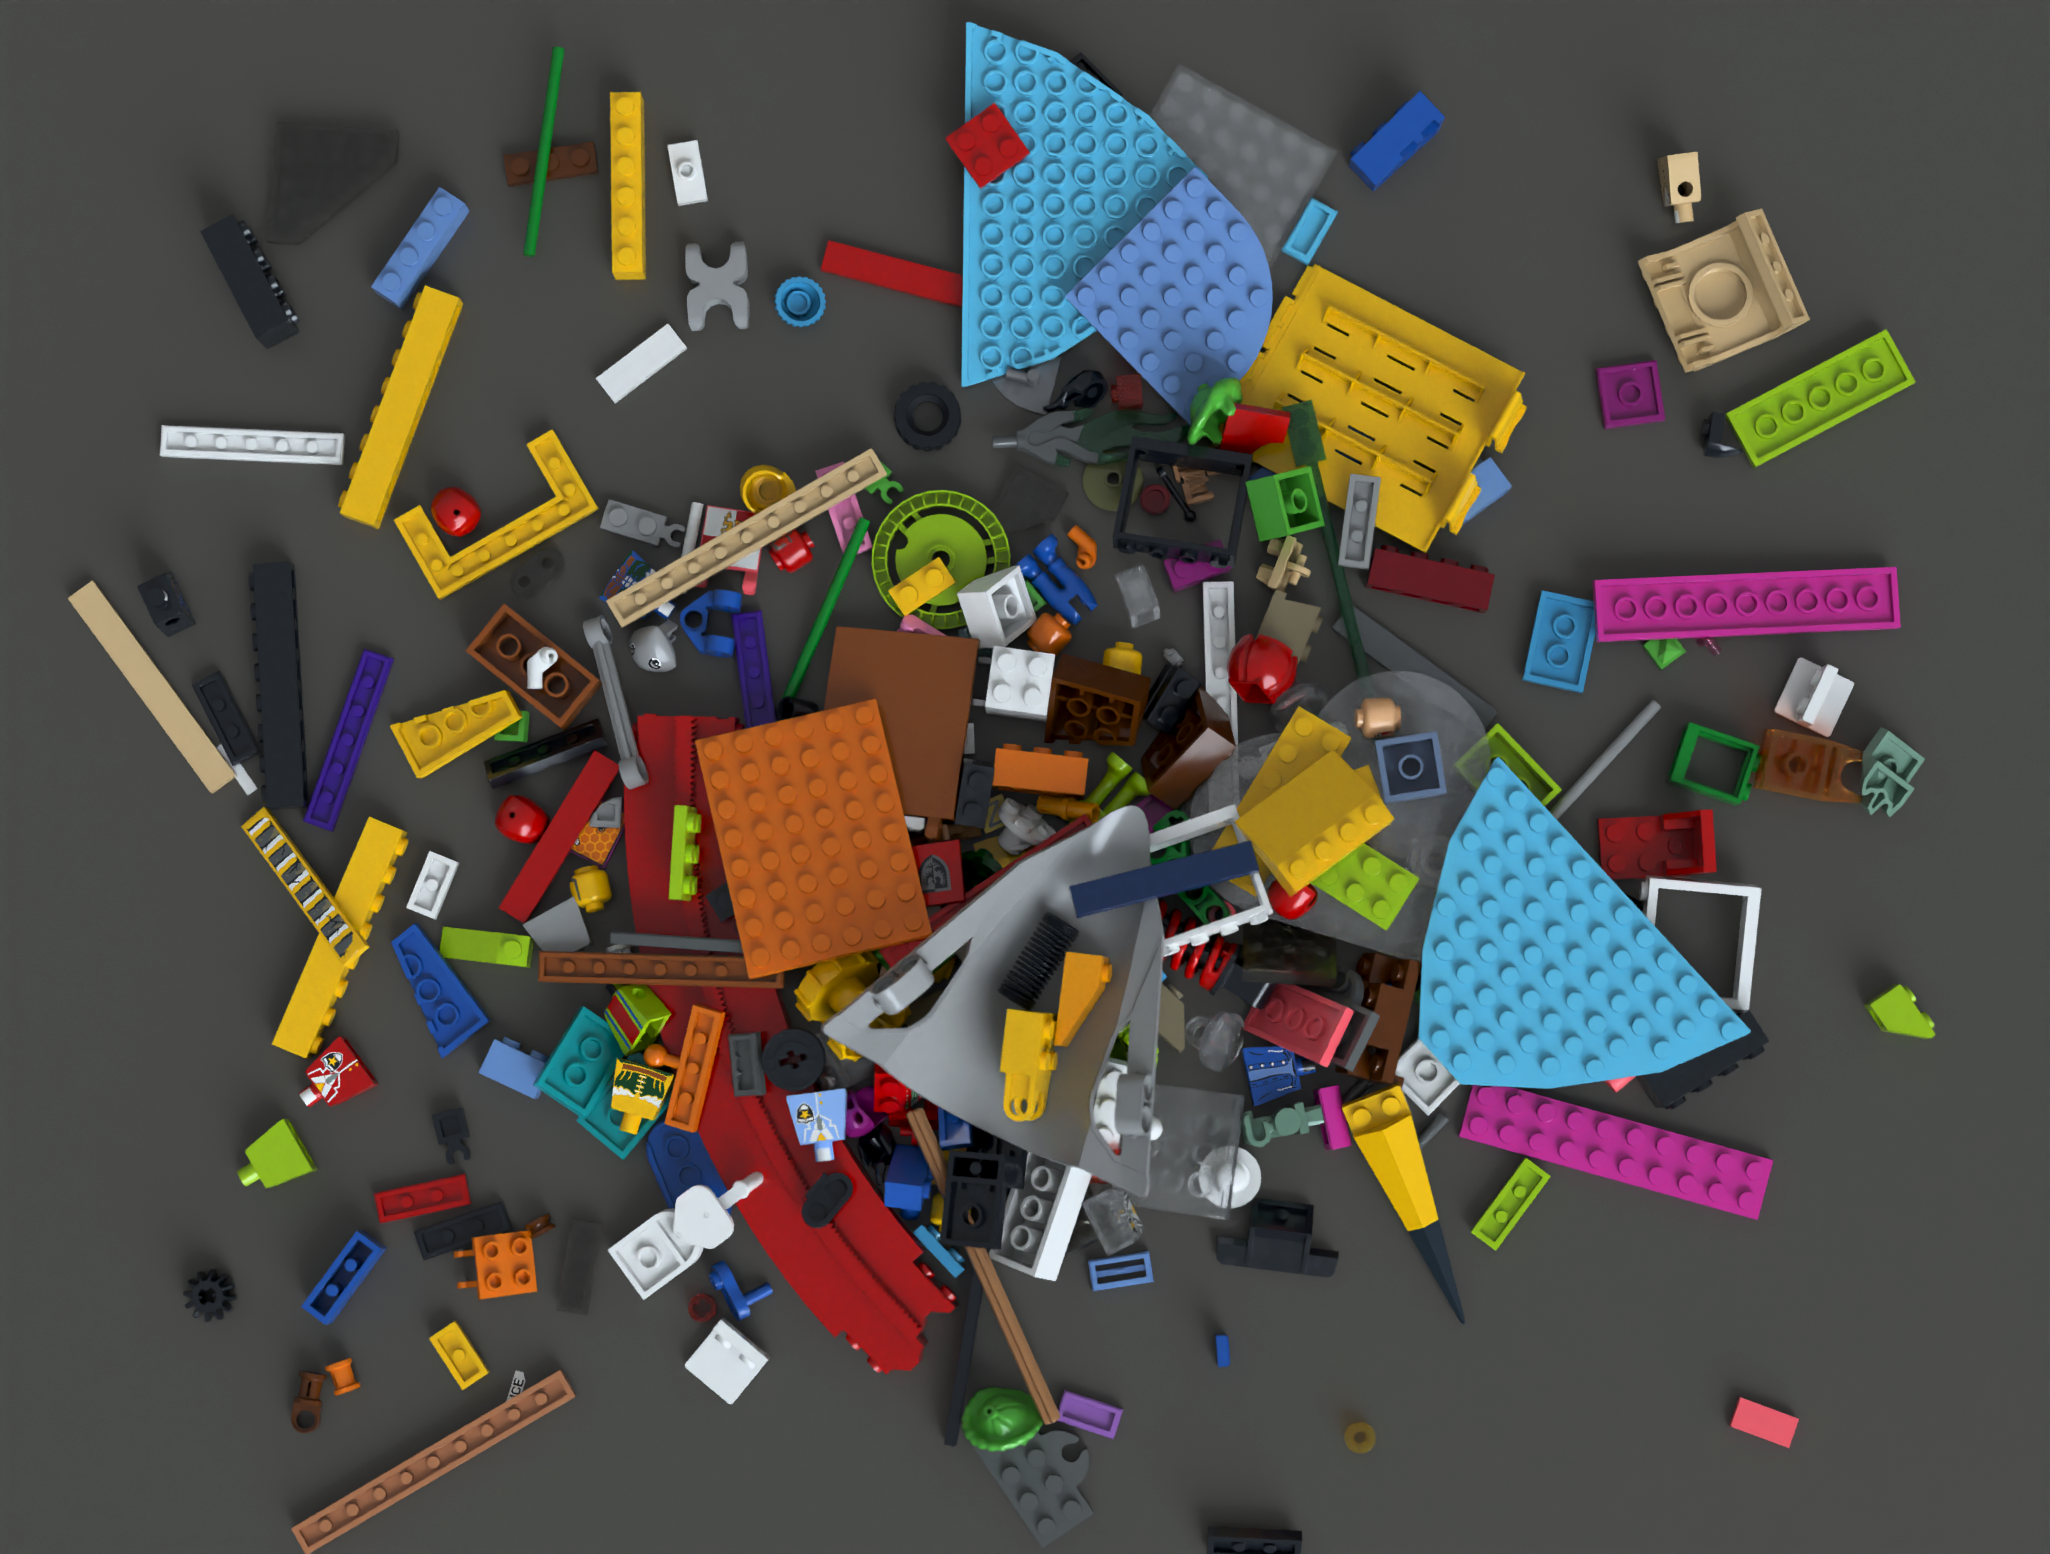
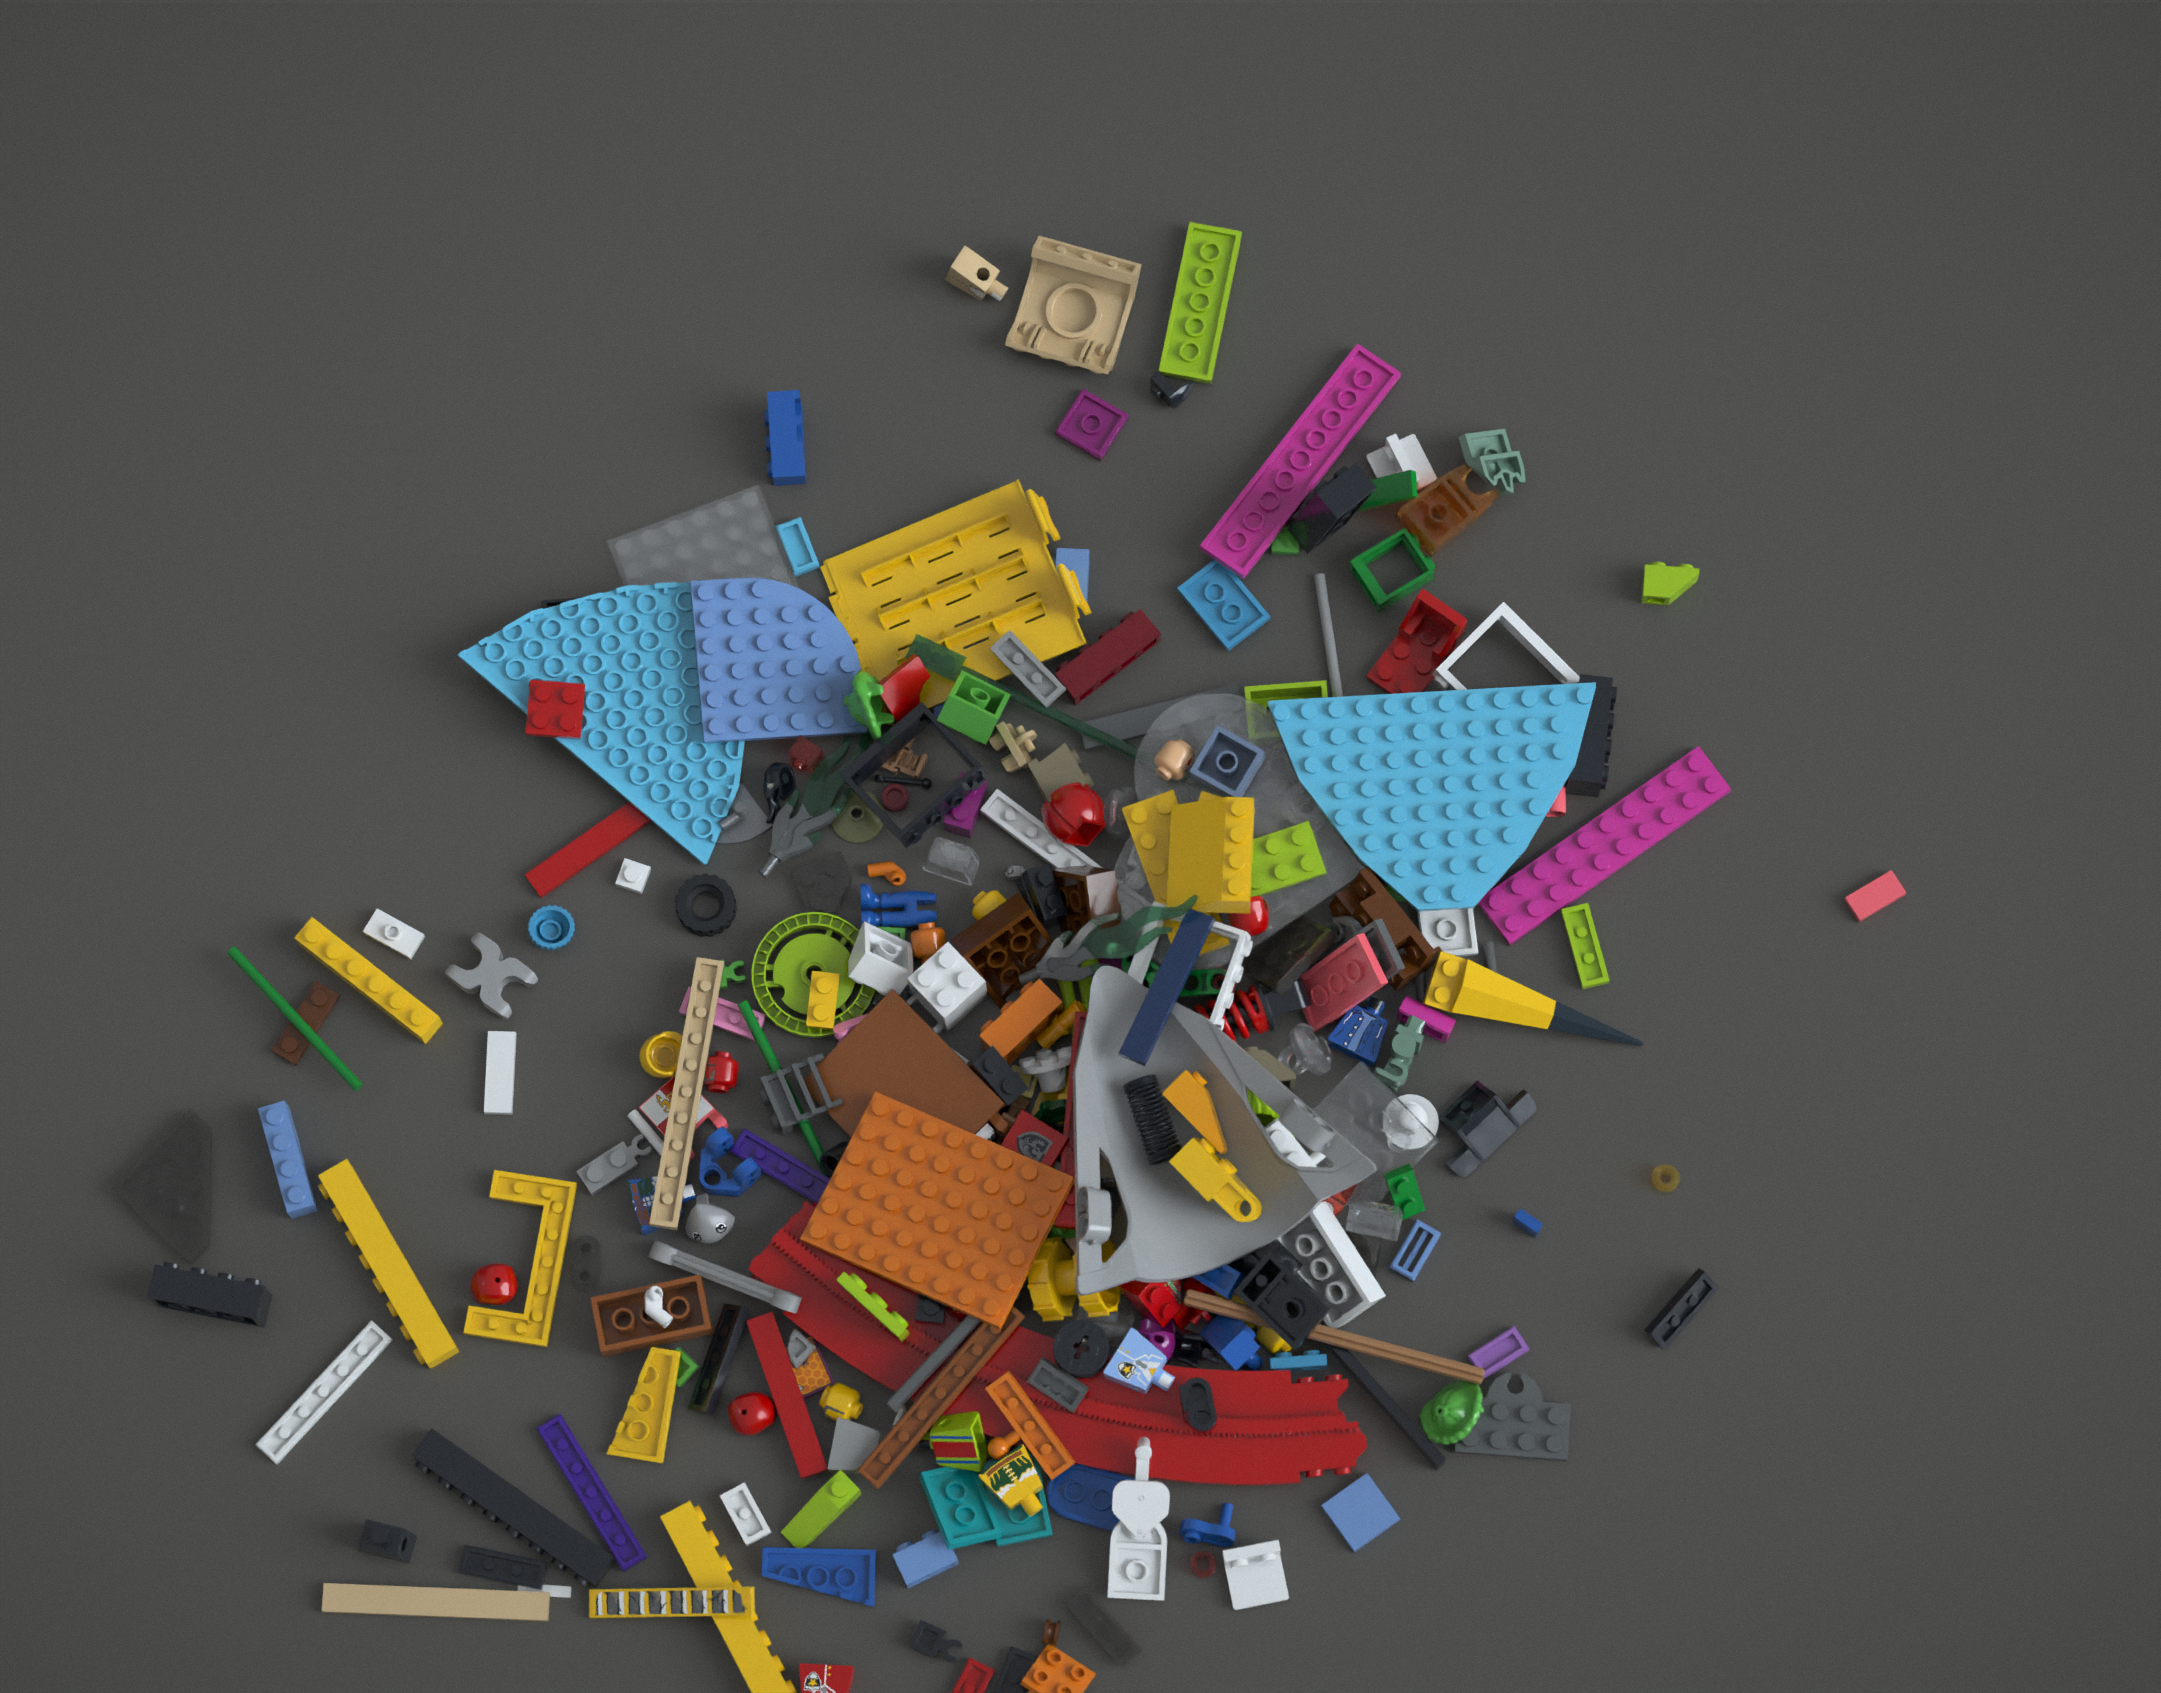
camera: 50 degrees left, 10 degrees down
(810, 615) = (778, 1095): none -> dark grey plate
(854, 1406) = (1360, 1512): none -> medium blue tile
(903, 333) = (633, 876): none -> white plate
(1156, 779) = (1091, 942): none -> clear green piece
(1162, 1222) = (1404, 1190): none -> green plate
(1721, 668) = (1331, 507): none -> black brick
(1774, 697) = (1392, 489): none -> green tile

